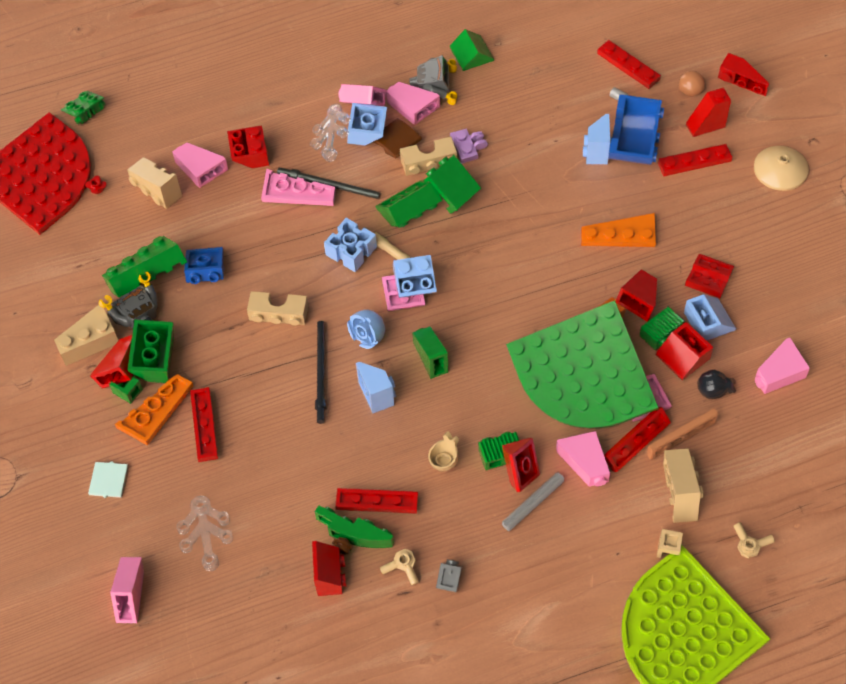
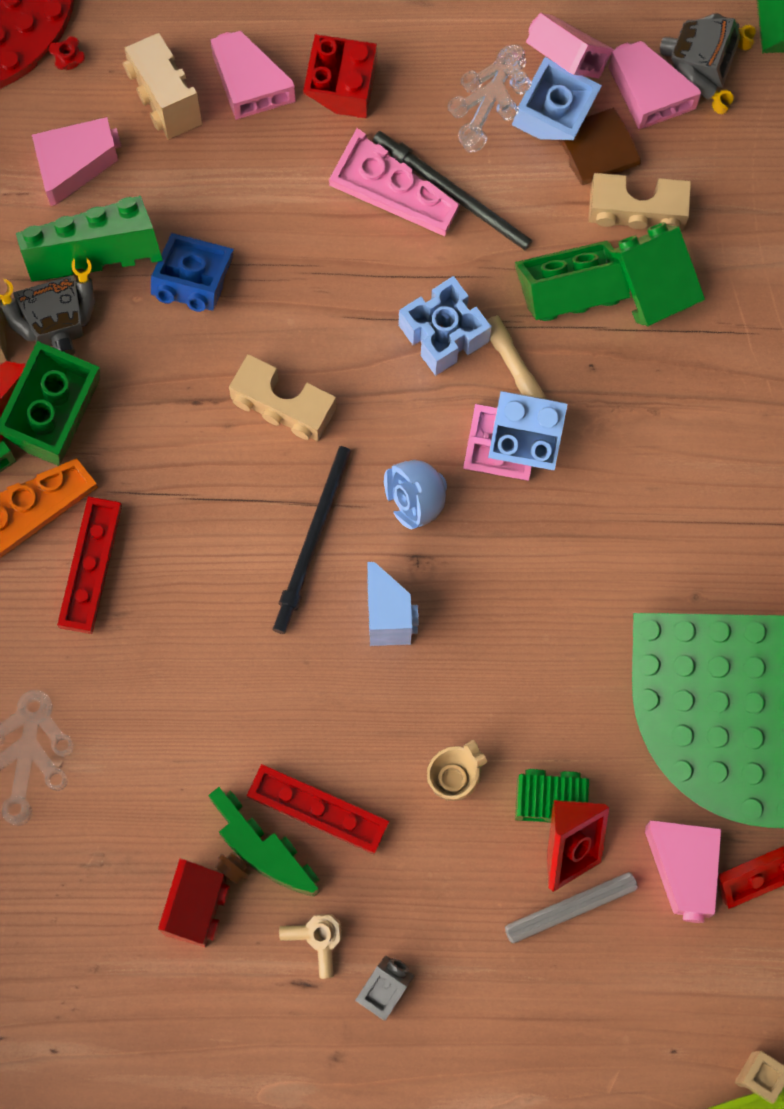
camera: 15 degrees right, 15 degrees up
(119, 230) = (74, 156): none -> bright pink slope
(431, 352) = (504, 574): green slope -> none
(464, 144) = (709, 198): lavender hinge -> none

